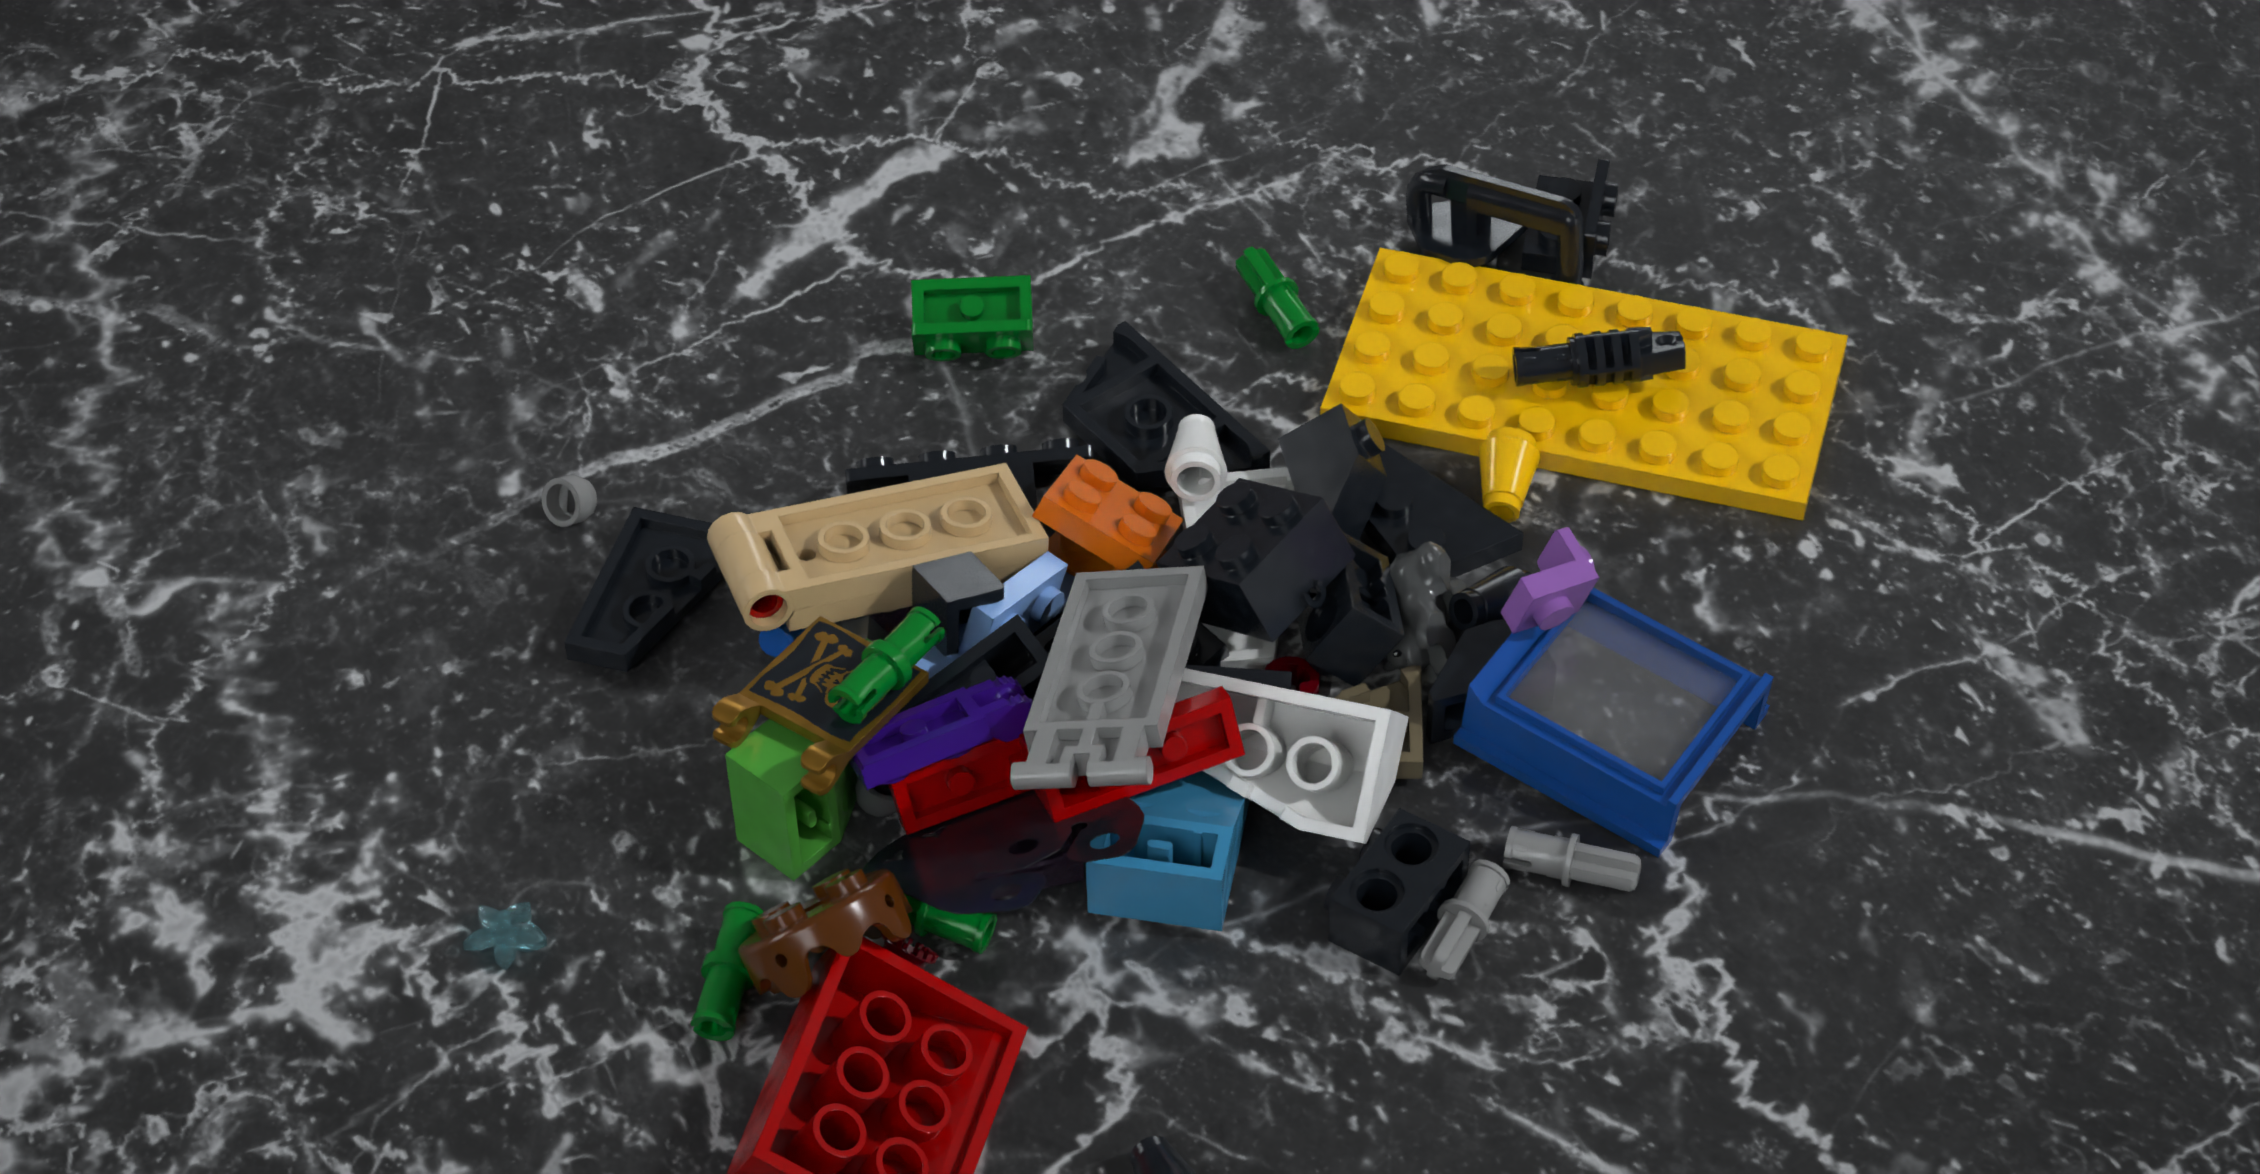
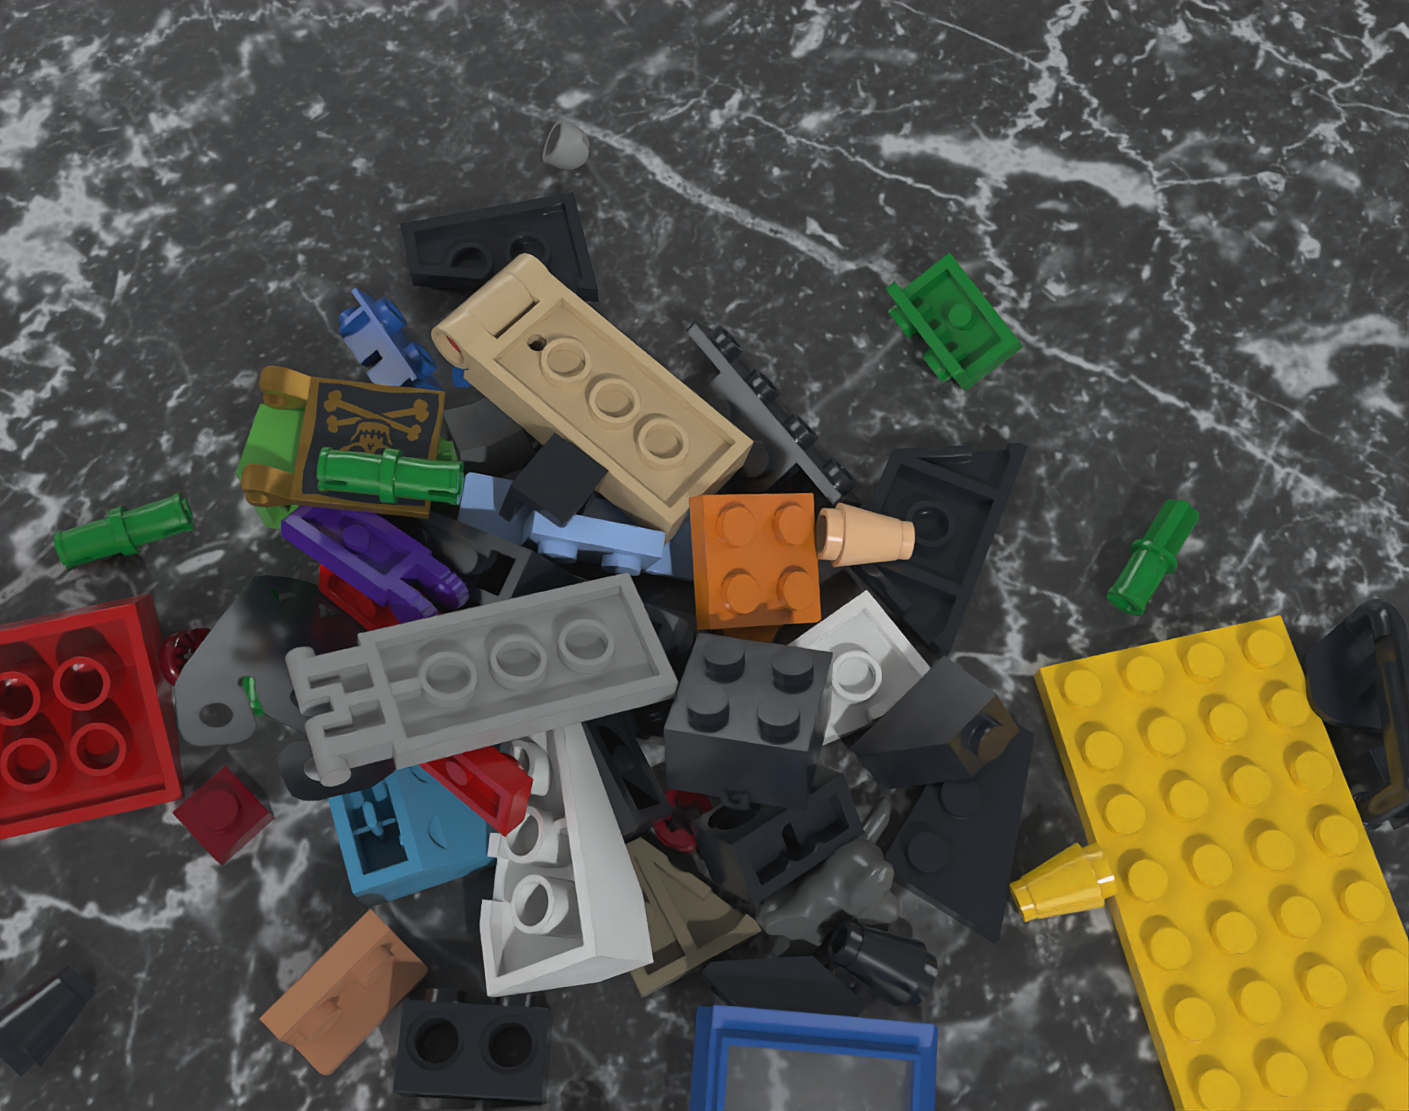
camera: 55 degrees right, 20 degrees up
(507, 932) = (103, 349): clear light blue plant -> none
(665, 704) = (377, 331): none -> blue hinge
(837, 918) = (143, 575): reddish brown plate -> none
(1065, 1002) = (223, 815): none -> dark red plate
(1136, 445) = (861, 536): none -> light nougat cone
(1196, 460) = (880, 595): white cone -> none
(1291, 953) = (346, 994): none -> nougat bracket
(1555, 591) = (851, 1037): medium lavender bracket -> none
(1601, 358) = (1267, 920): black hinge -> none

